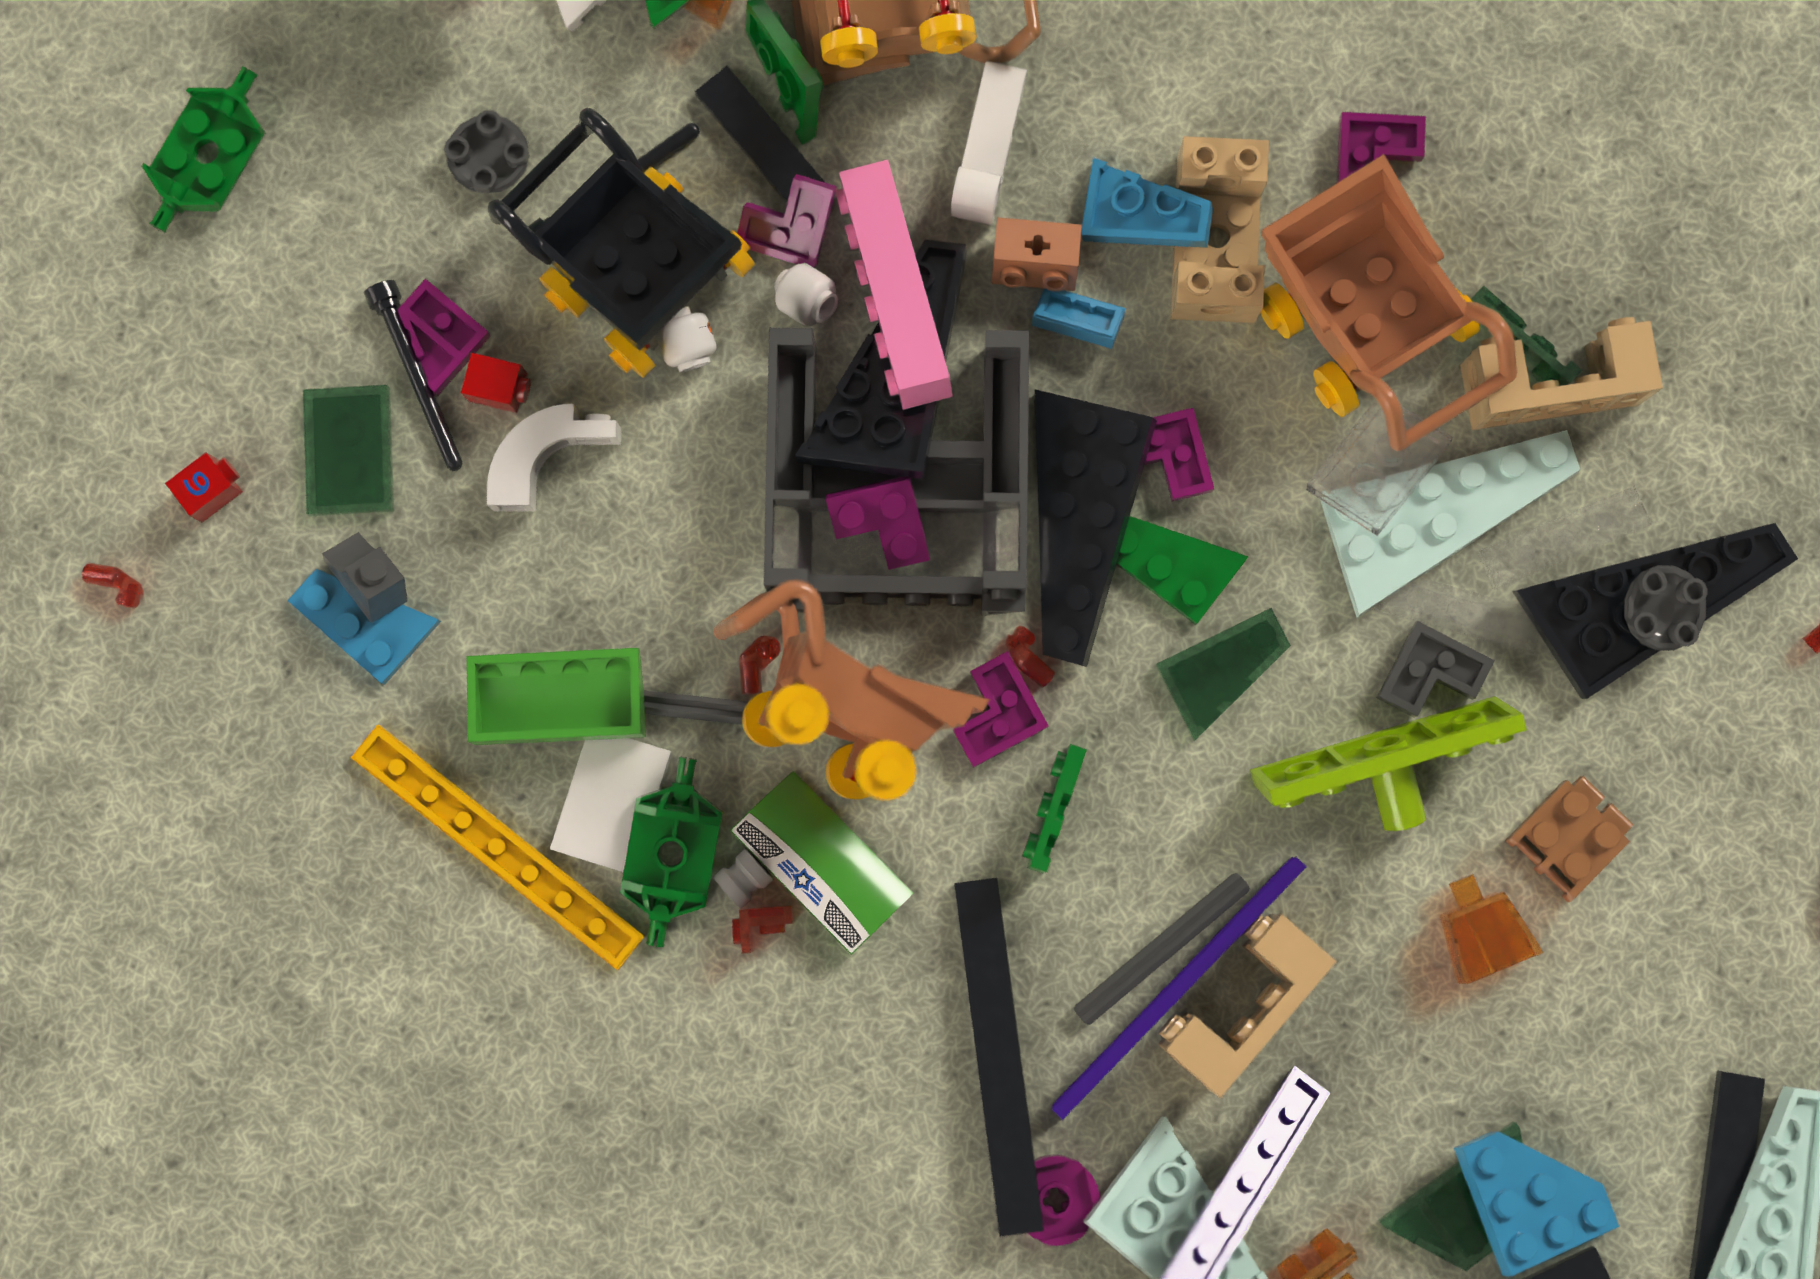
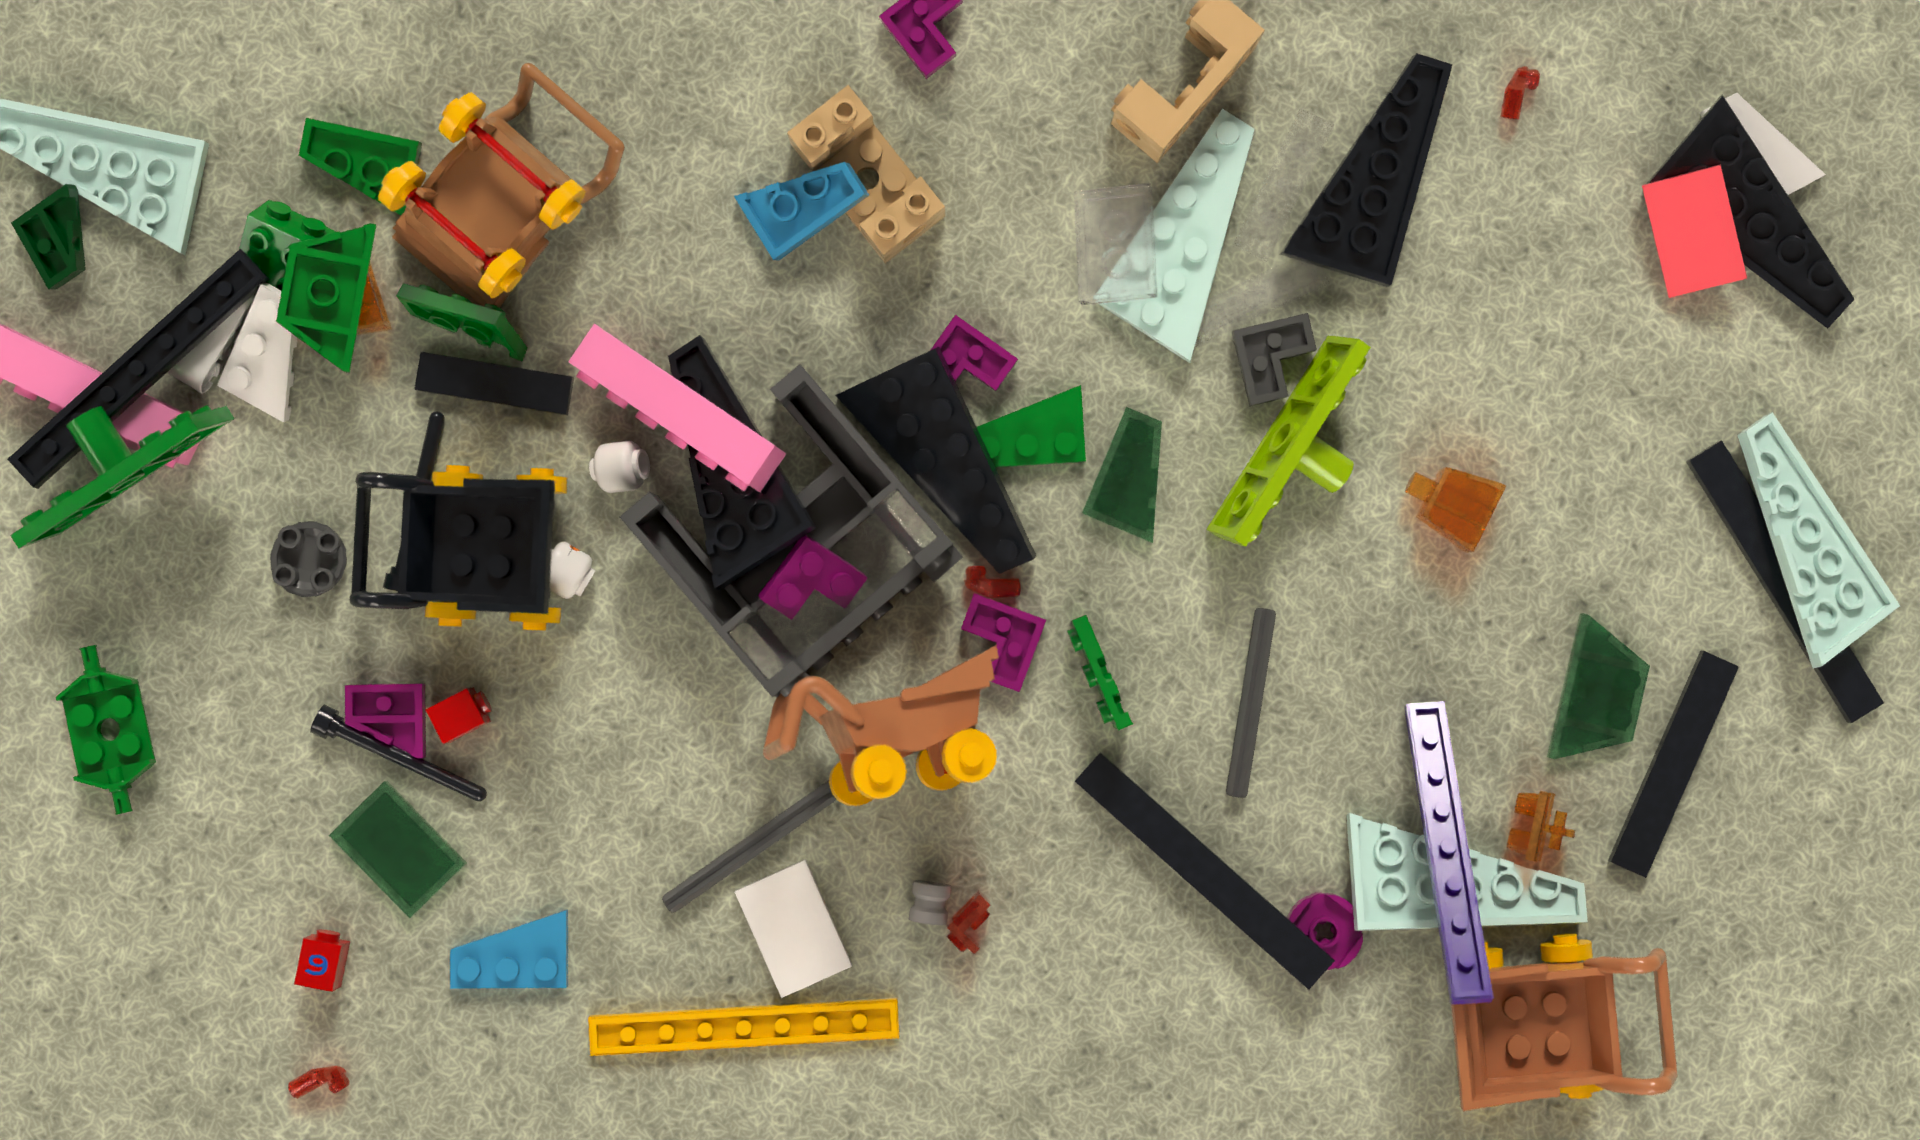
camera: 50 degrees left, 5 degrees up
(367, 576) = (490, 924): dark grey arch -> none
(531, 442) = (521, 735): white arch -> none
(555, 696) = (694, 893): bright green slope -> none
(678, 816) = (859, 897): green plate -> none
(754, 660) = (807, 749): clear red arm -> none
(797, 232) = (574, 430): plate -> none
(821, 862) = (973, 845): bright green slope -> none
(988, 143) = (652, 249): white beam -> none
(1036, 254) = (737, 300): nougat brick -> none
(1079, 317) = (821, 318): dark azure plate -> none
(1177, 987) = (1284, 720): dark purple tile -> none
(1300, 968) = (1353, 749): tan plate -> none
(1373, 296) = (1015, 135): nougat piece -> none
(1531, 1201) = (1637, 658): dark azure plate -> none
(1536, 349) = (1174, 78): clear green wing -> none
(1573, 835) = (1459, 386): medium nougat plate -> none
(1666, 608) = (1392, 178): dark grey dish -> none

